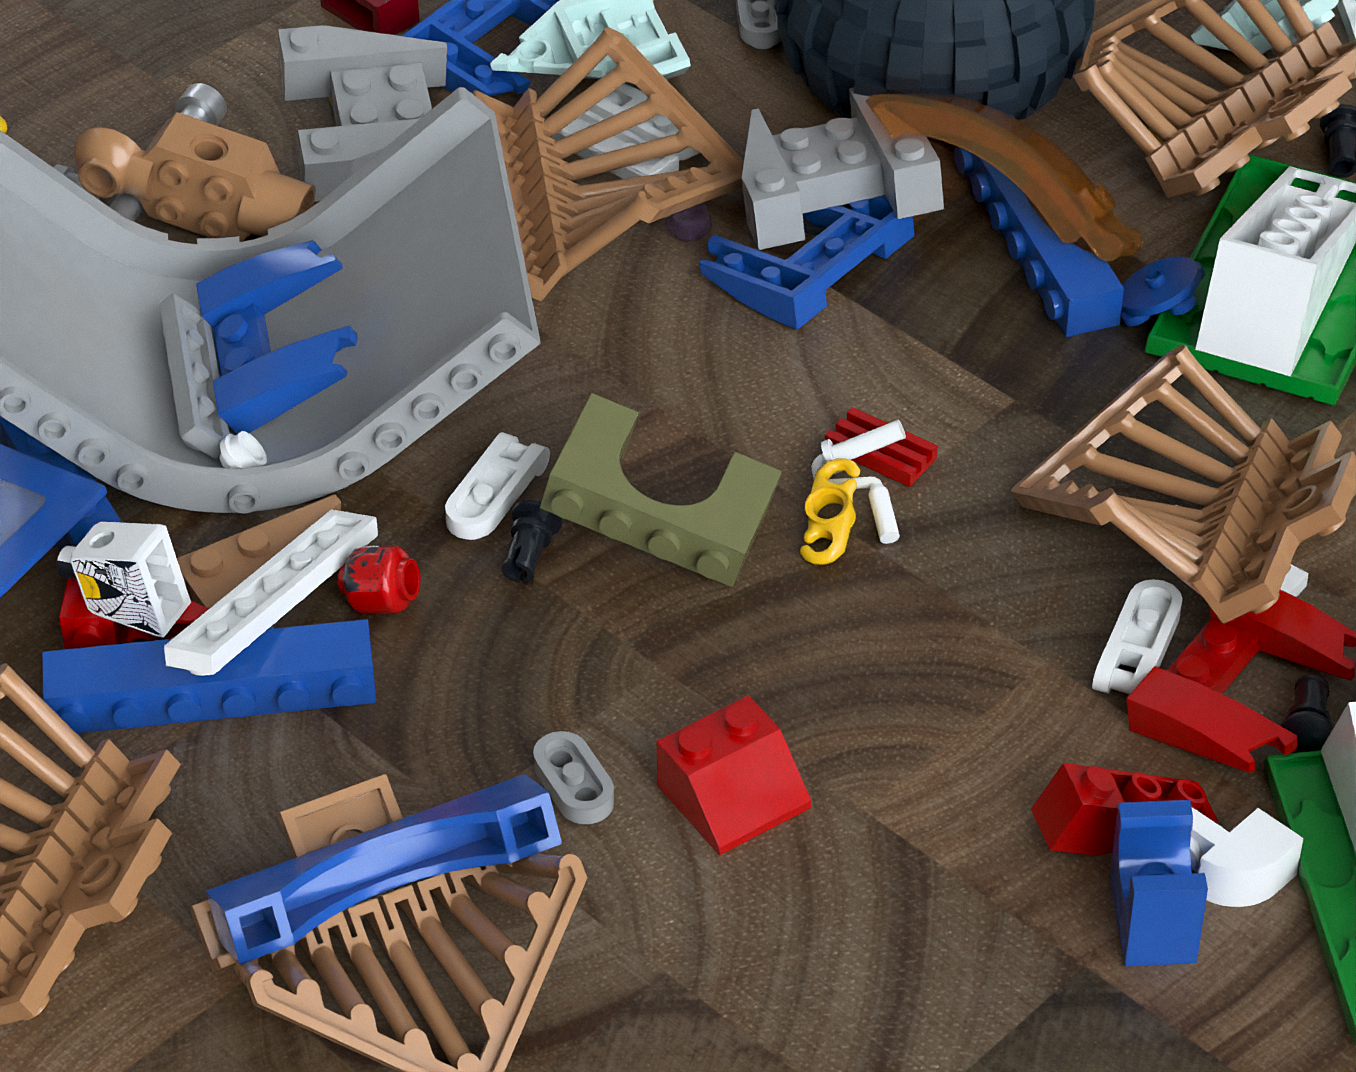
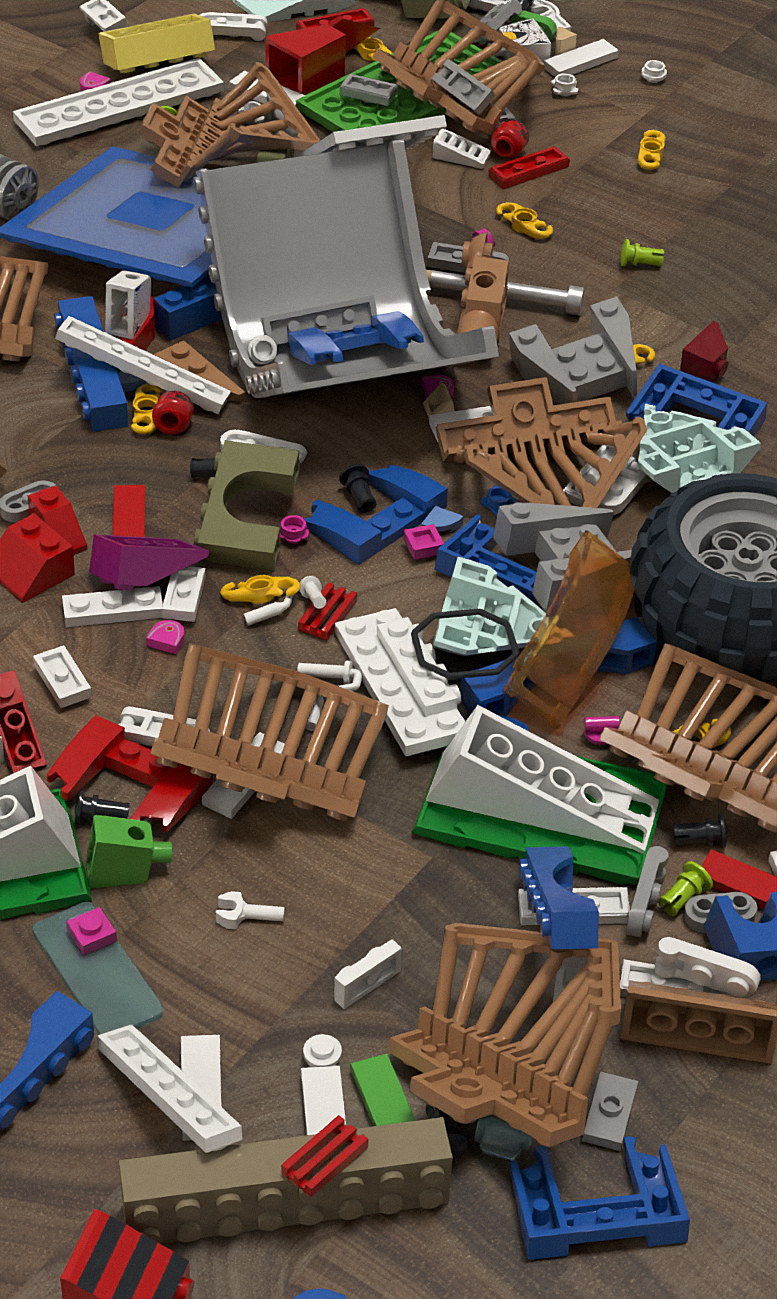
camera: 80 degrees right, 0 degrees up
(96, 37) = (638, 254): none -> lime pin
(340, 607) = (144, 400): none -> yellow piece
(610, 382) = (357, 483): none -> black pin
(626, 736) = (58, 513): none -> red slope
(633, 658) = (129, 510): none -> red tile
(659, 244) = (497, 497): none -> blue plate
(691, 311) = (443, 519): none -> medium blue tile
(693, 465) = (293, 529): none -> dark pink plate
(712, 393) = (362, 539): none -> blue wedge
(745, 327) = (423, 541): none -> dark pink plate
(771, 623) = (140, 560): none -> magenta slope
(831, 596) = (184, 594): none -> white plate
(843, 690) = (112, 606): none -> white plate
(922, 627) = (166, 636): none -> dark pink tile
(946, 273) = (475, 587): none -> light aqua wedge
(1014, 749) = (62, 676): none -> white plate
(1027, 433) = (329, 671): none -> white piece
(1030, 325) = (467, 674): none -> black piece
(1035, 371) = (420, 702): none -> white plate
(1149, 204) = (595, 725): none -> dark pink plate

